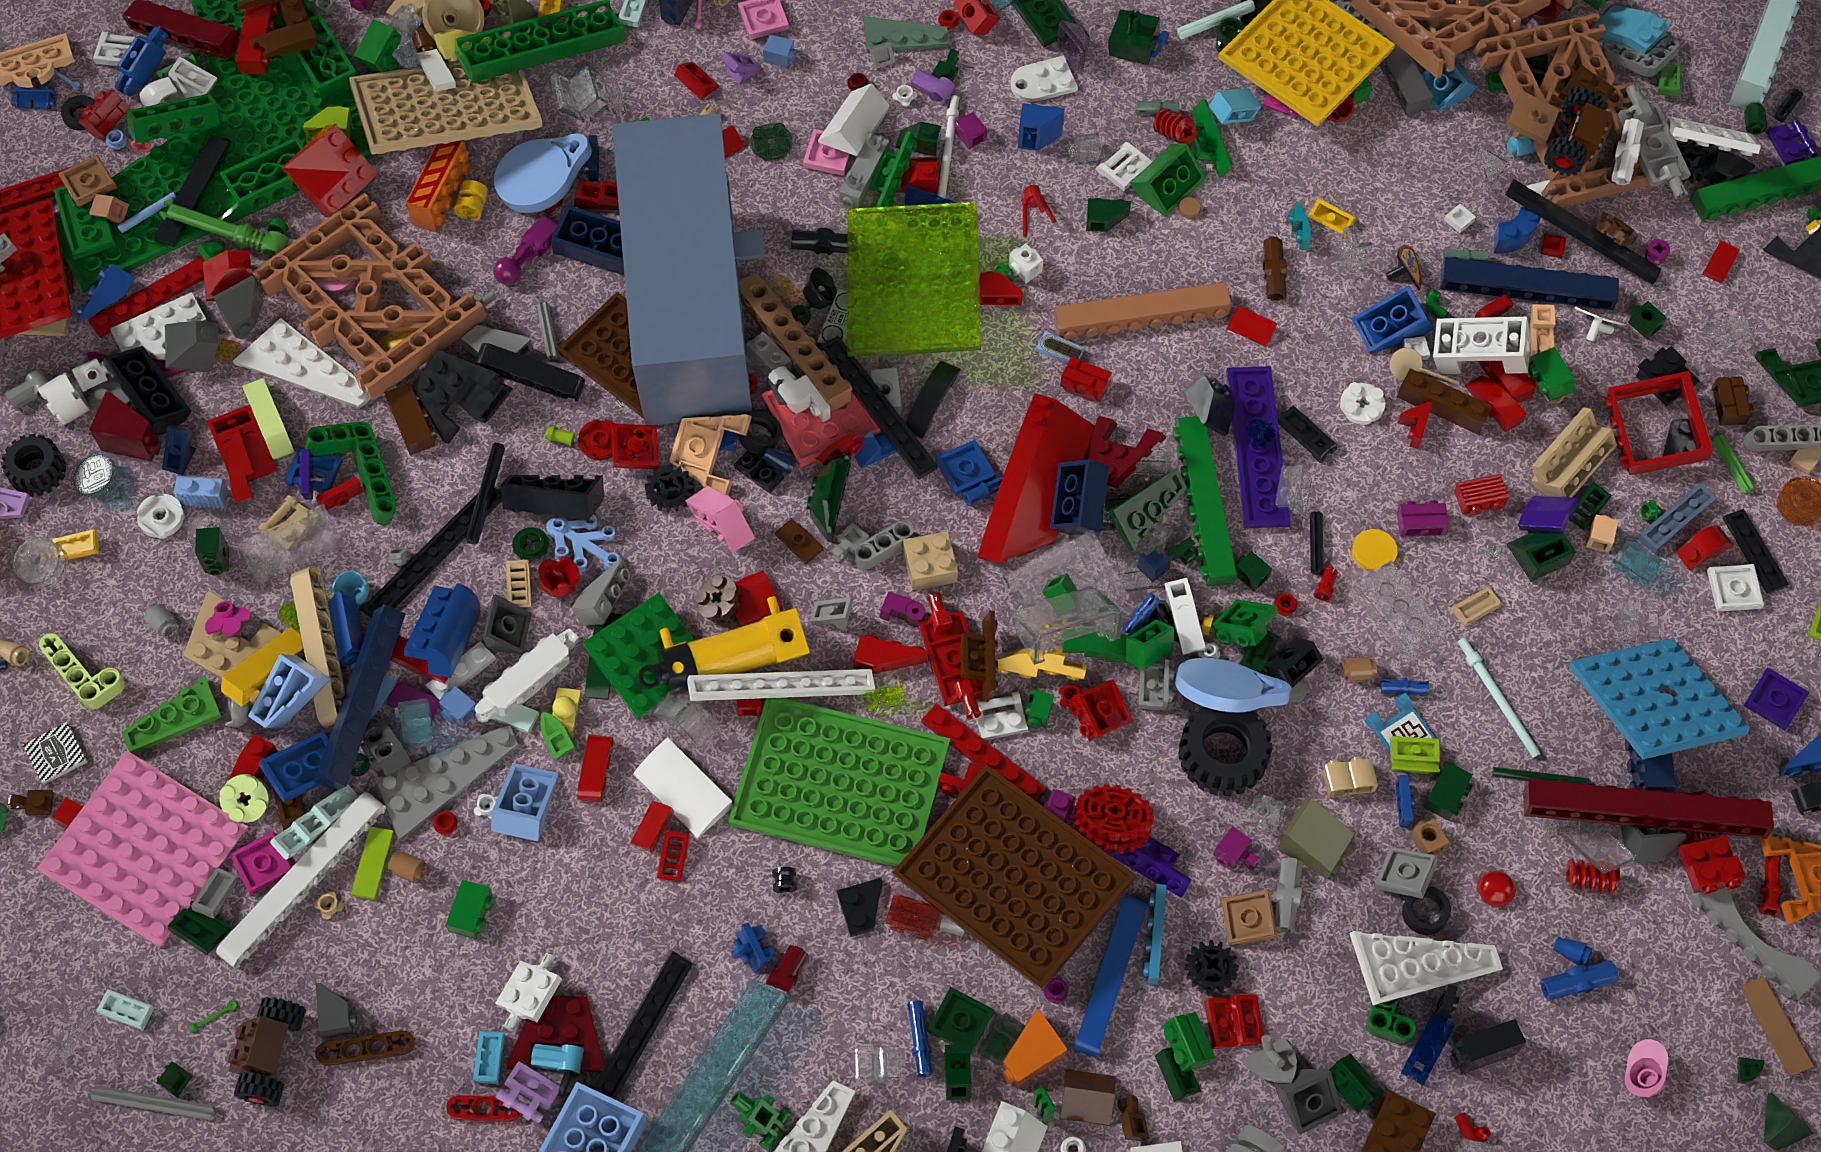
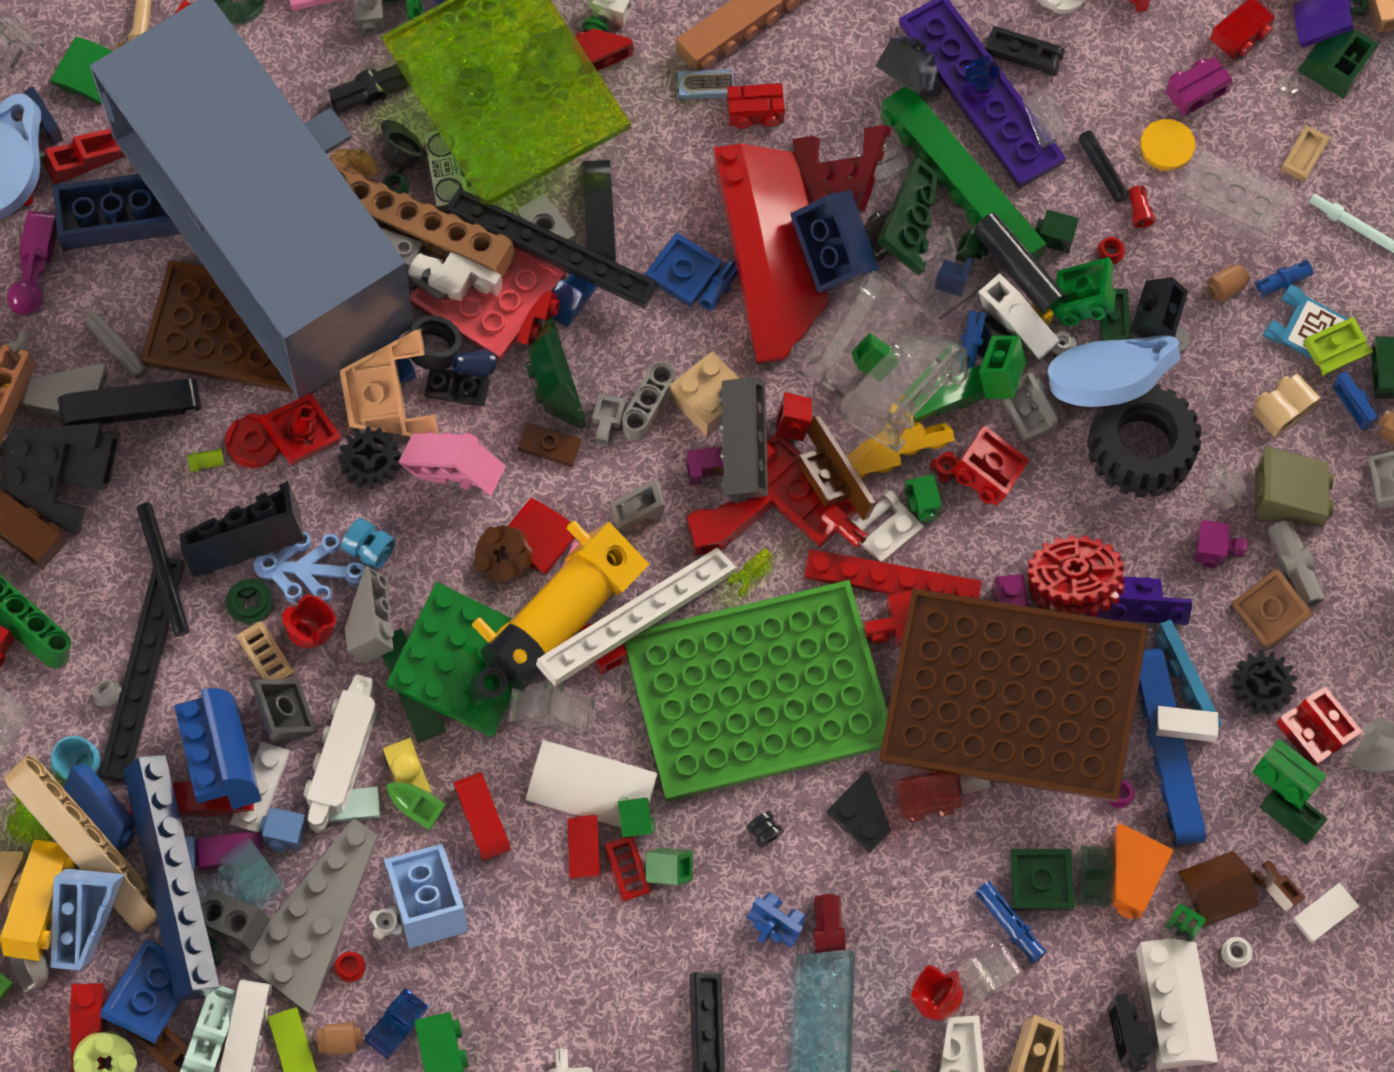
camera: 30 degrees left, 5 degrees up
(450, 878) = (396, 1023): none -> clear blue slope
(632, 545) = (365, 542): none -> dark azure wheel
(695, 822) = (635, 817): none -> green panel
(702, 870) = (669, 866): none -> green panel
(833, 1059) = (937, 994): none -> red helmet
(930, 600) = (744, 438): none -> dark grey brick
(957, 1071) = (1073, 937): dark green brick -> none
(979, 605) = (794, 417): none -> red brick
(1131, 964) = (1187, 724): none -> white slope
(1206, 577) = (1019, 263): none -> black brick

